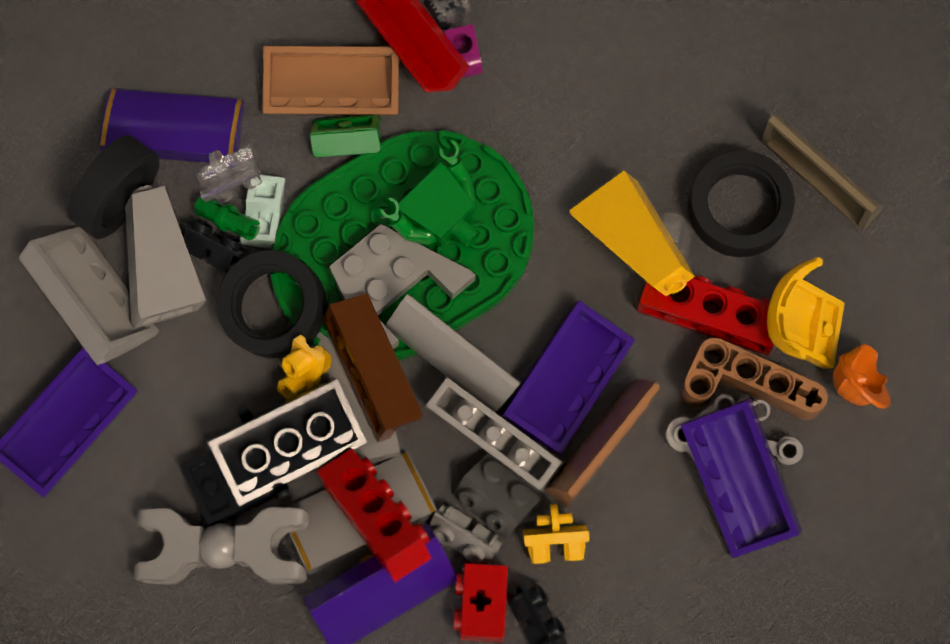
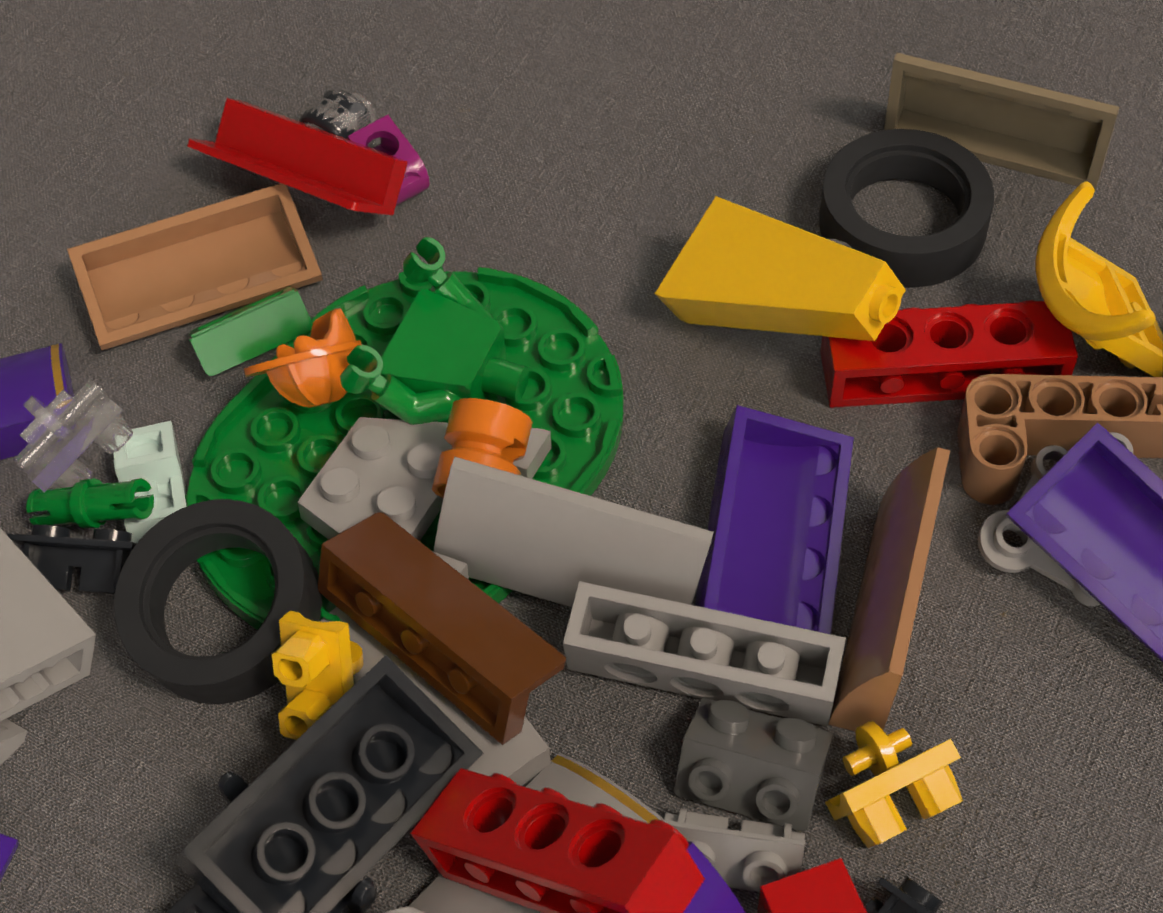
camera: 20 degrees left, 20 degrees down
(367, 184) = (312, 368): none -> orange piece
(430, 282) = (485, 435): none -> orange wheel

